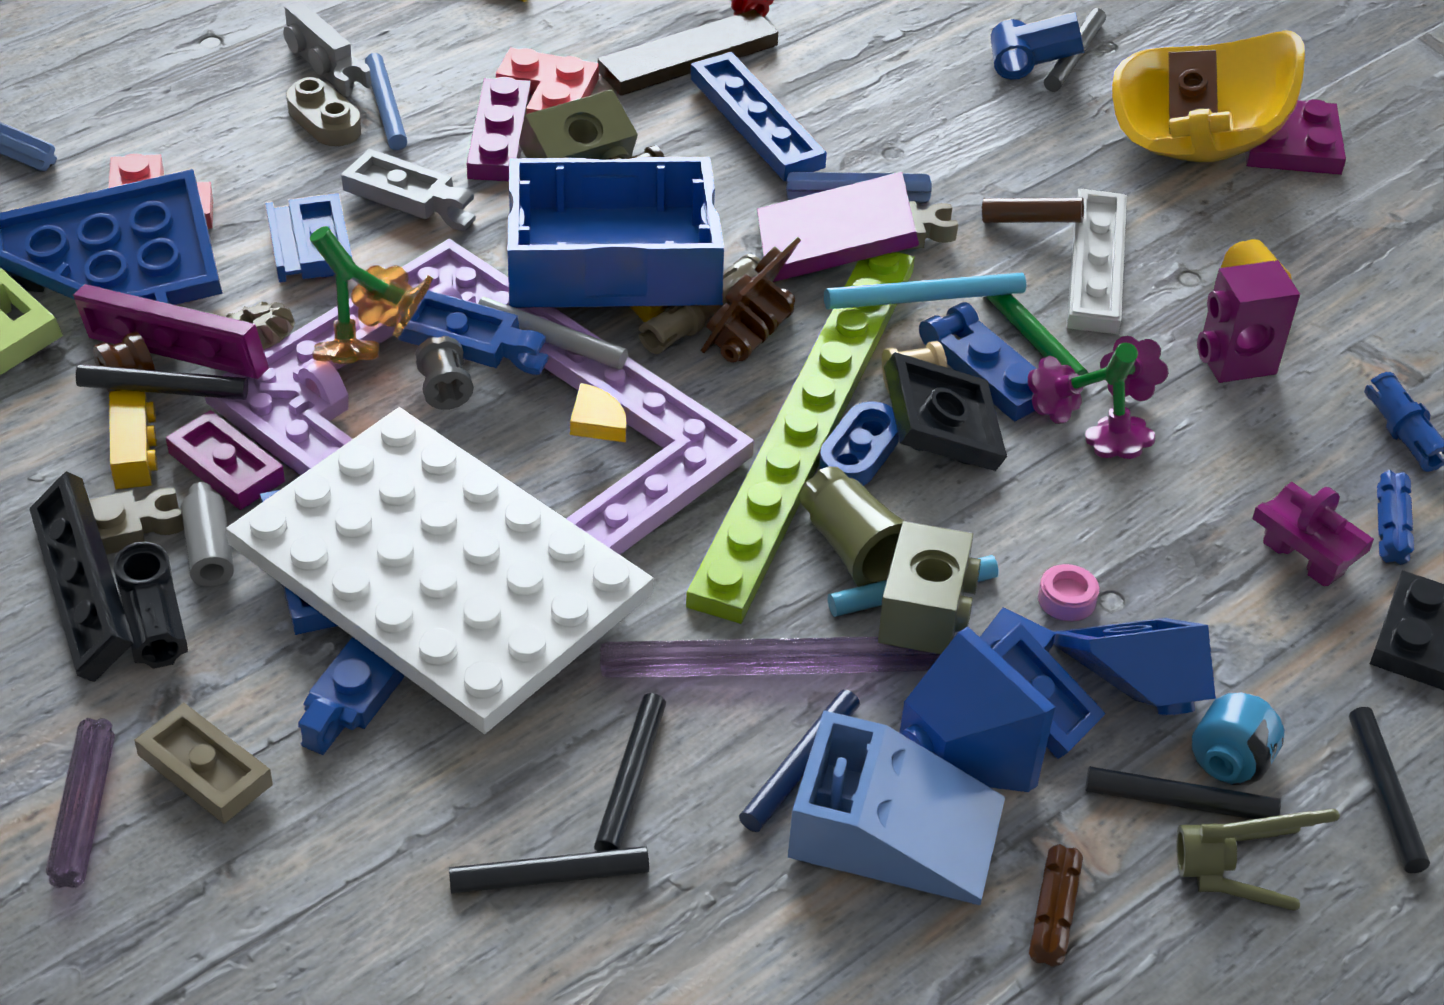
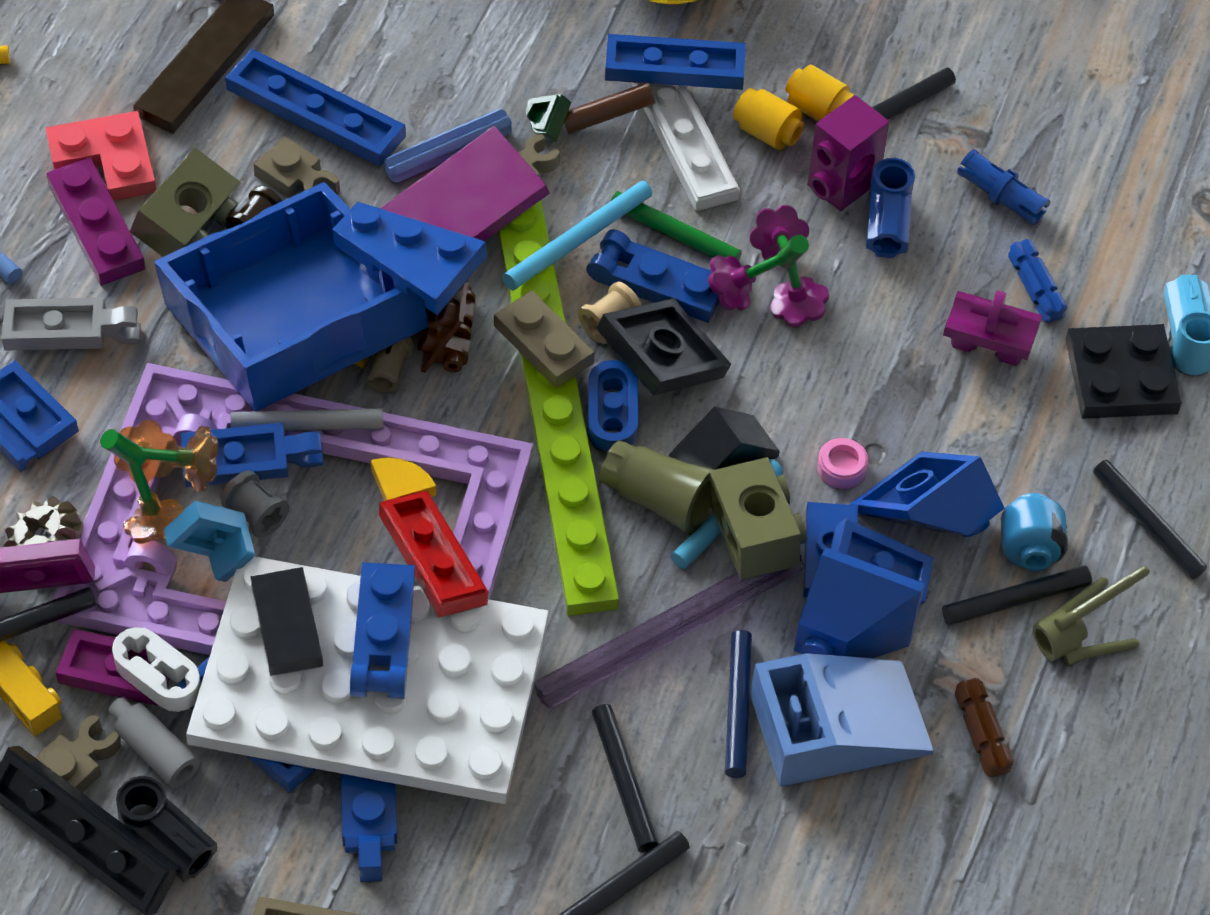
camera: 30 degrees left, 10 degrees up
(239, 470) = (149, 677): none -> white beam
(379, 373) = (213, 533): none -> dark azure bracket
(385, 470) = (286, 621): none -> black tile
(469, 517) = (383, 629): none -> blue plate
(575, 480) = (438, 557): none -> red tile
(705, 143) = (292, 169): none -> dark tan plate
(734, 221) = (412, 252): none -> blue wing
(827, 358) = (544, 339): none -> dark tan plate
(957, 506) = (725, 440): none -> black slope
(969, 194) = (548, 115): none -> dark green tile
(1123, 193) = (675, 61): none -> blue plate
(1187, 272) = (768, 118): none -> yellow brick
(1268, 390) = (890, 207): none -> blue piece
(1354, 314) = (916, 93): none -> black bar

